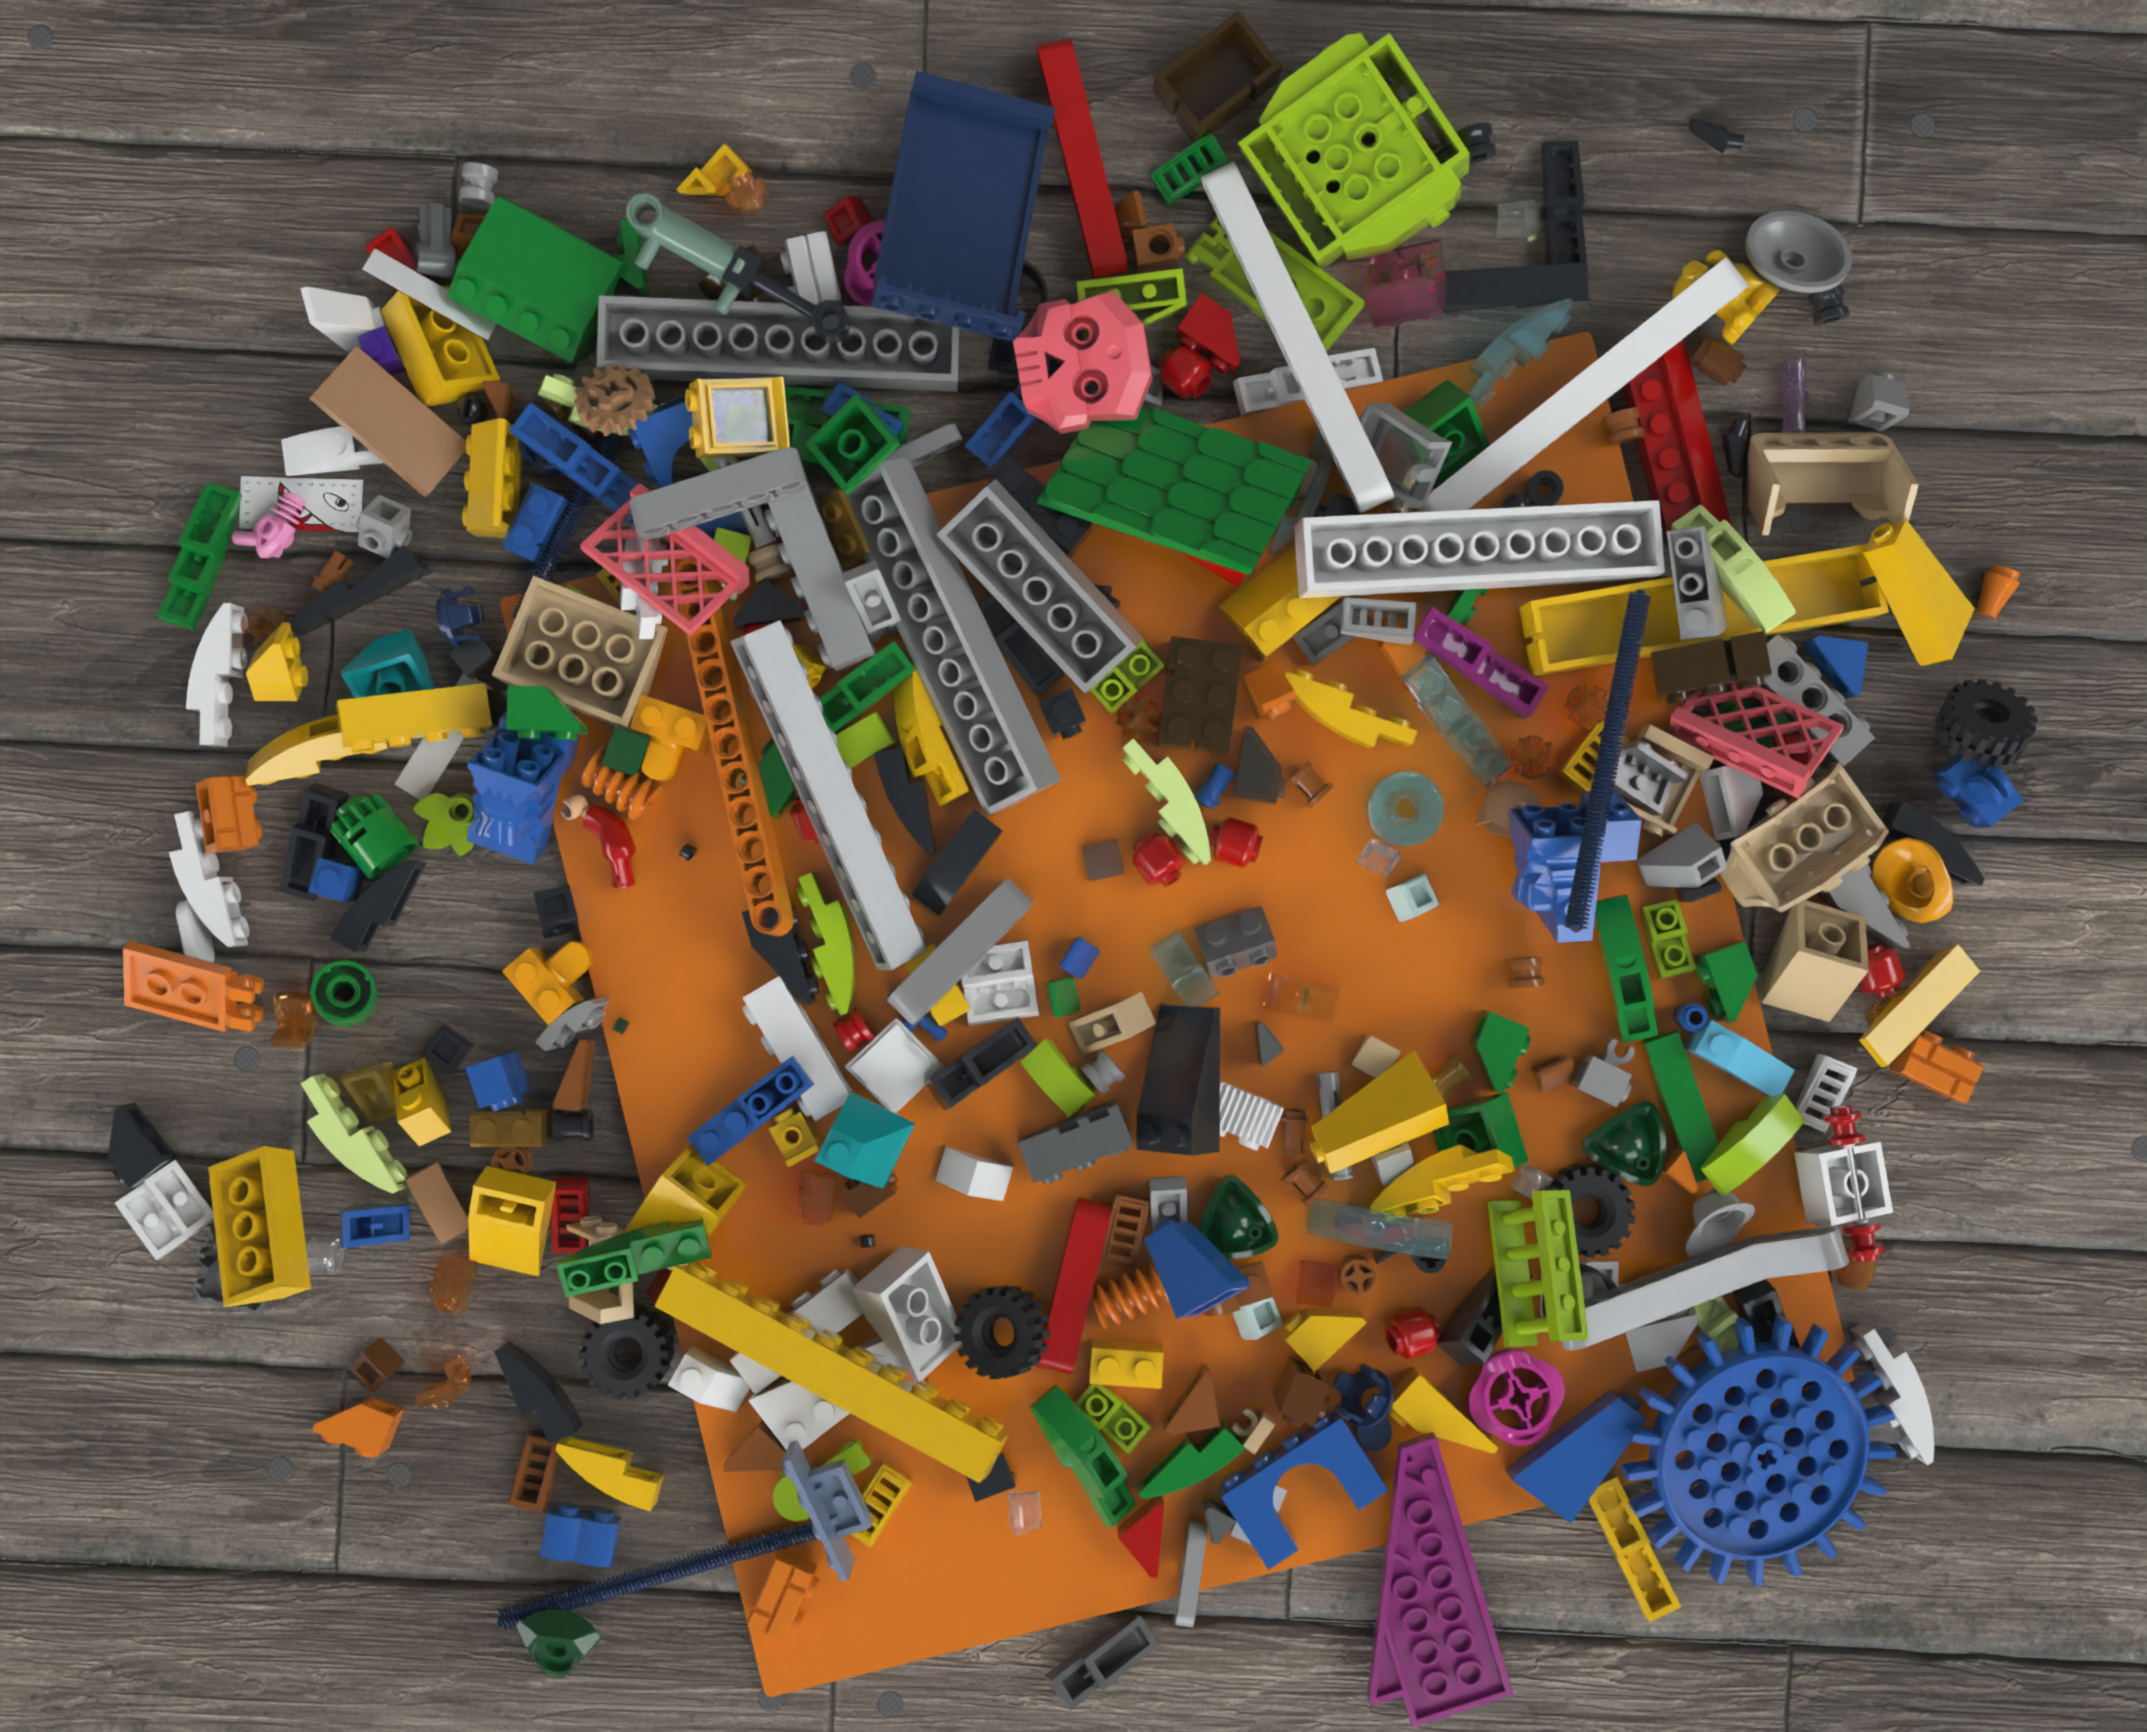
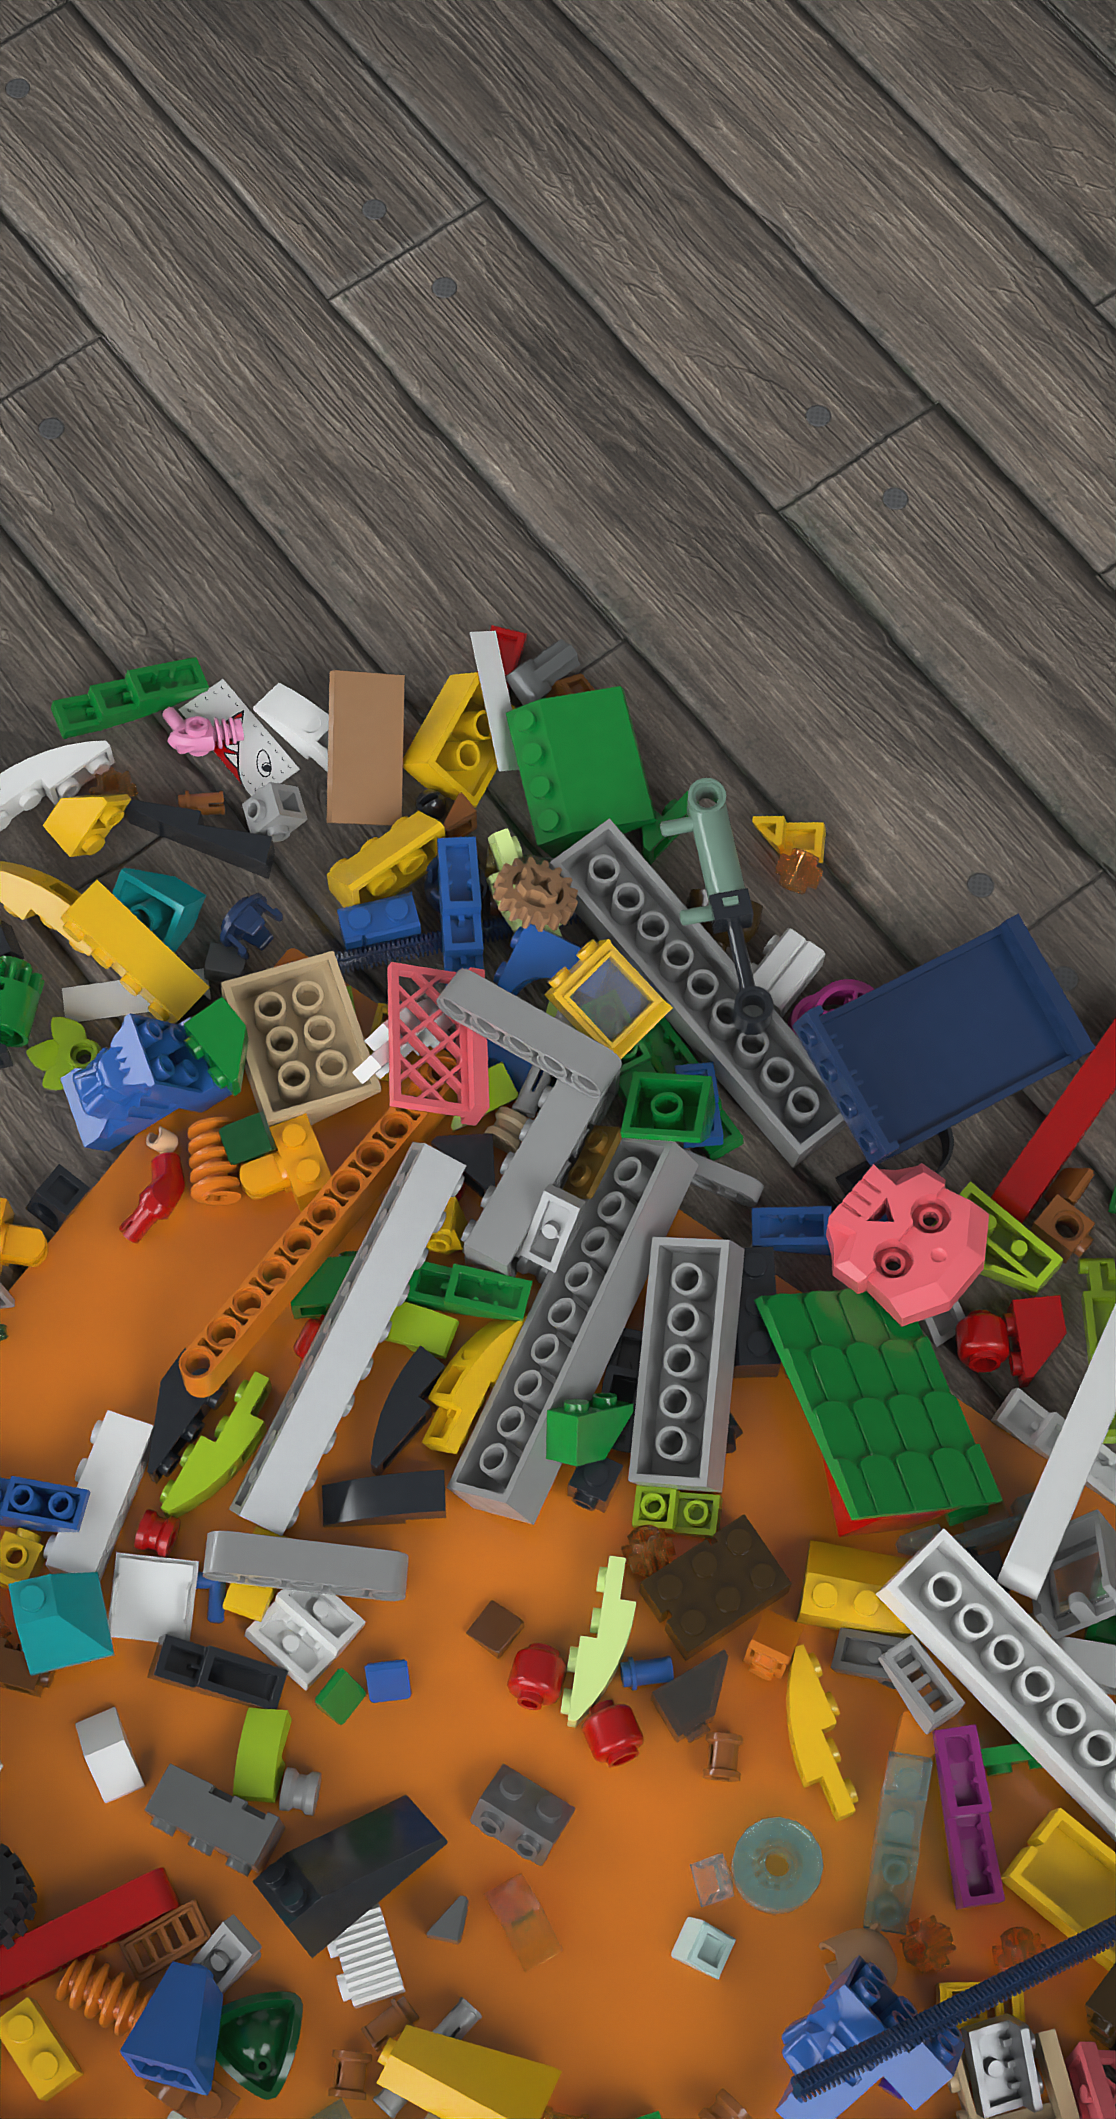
camera: 45 degrees right, 20 degrees down
(341, 315) = (419, 651): white slope -> none
(382, 349) = (418, 700): dark purple brick -> none
(478, 185) = (619, 668): light grey wheel -> none
(687, 852) = (201, 1265): black piece -> none
(847, 218) = (854, 963): red slope -> none
(1029, 693) = (585, 1428): none -> green slope
(1112, 1023) = (353, 1761): tan slope -> none
(1183, 970) = (455, 1787): clear light blue slope -> none
(1375, 1056) = (525, 2038): tan slope -> none

